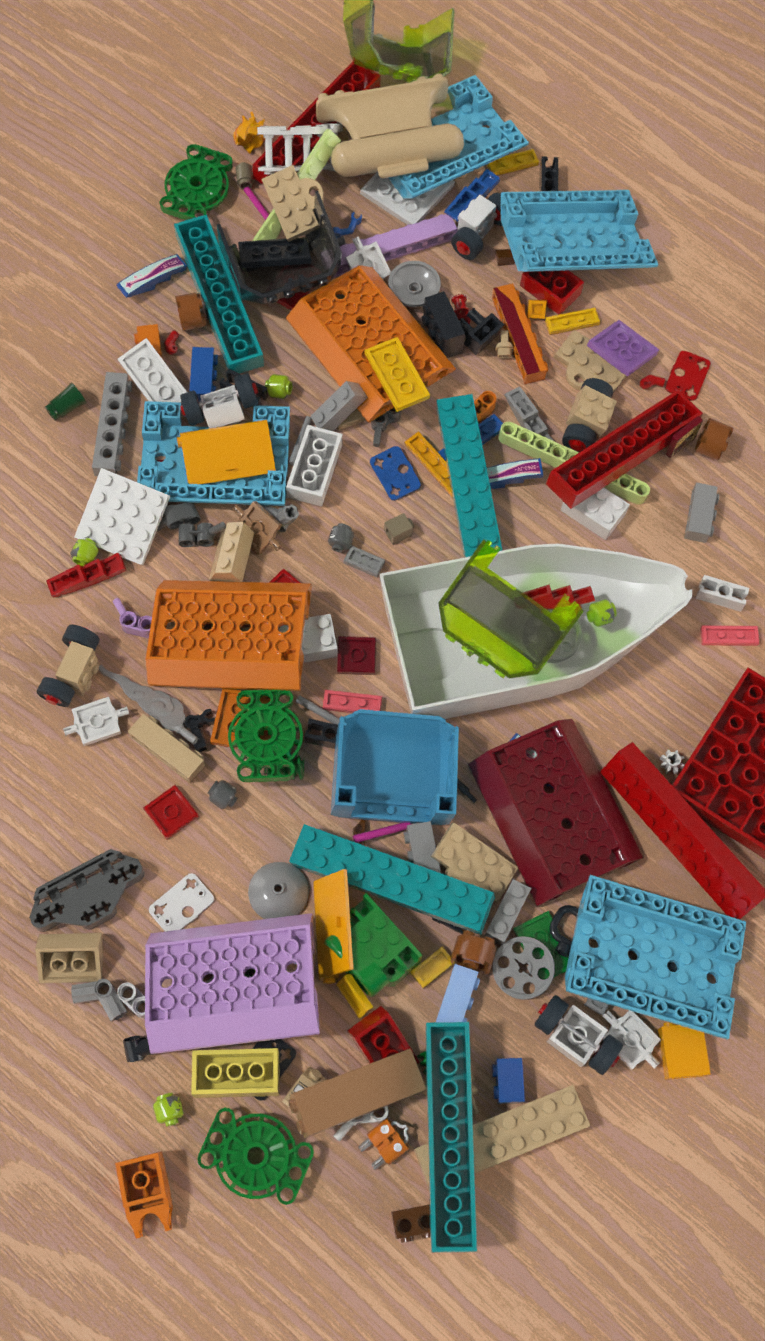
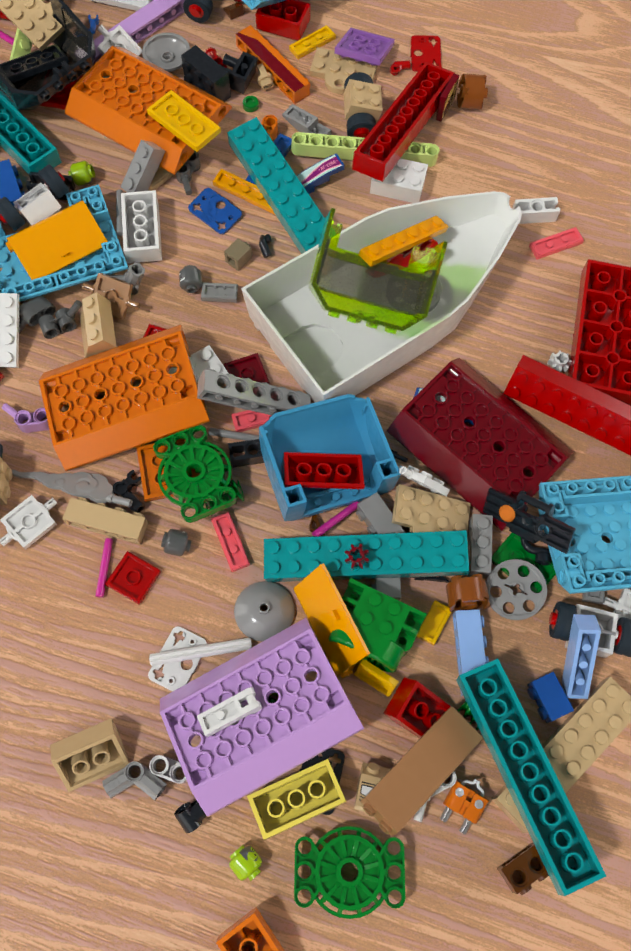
camera: 20 degrees left, 0 degrees up
(89, 896) = (86, 686): dark grey connector -> none
(148, 791) = (104, 568): none -> dark pink bar
(204, 905) = (200, 651): none -> white axle
(205, 969) = (228, 712): none -> white plate
(273, 813) = (230, 541): none -> coral tile
(342, 683) = (250, 394): none -> light grey brick
(382, 870) = (354, 551): none -> dark red gear
(385, 781) = (322, 470): none -> red slope
(401, 917) = (388, 586): none -> light grey brick
(427, 528) = (263, 244): none -> black arm
(478, 368) = (250, 104): none -> green tile
(478, 826) = (424, 479): none -> white plate
(536, 309) = (279, 40): light orange plate -> none
(550, 1053) = (581, 656): none -> light blue brick
(557, 911) = (515, 516): none -> black piece
(558, 583) = (402, 240): none -> light orange plate
(601, 613) = (452, 256): lime head -> none
(701, 512) = (488, 153): light grey brick -> none

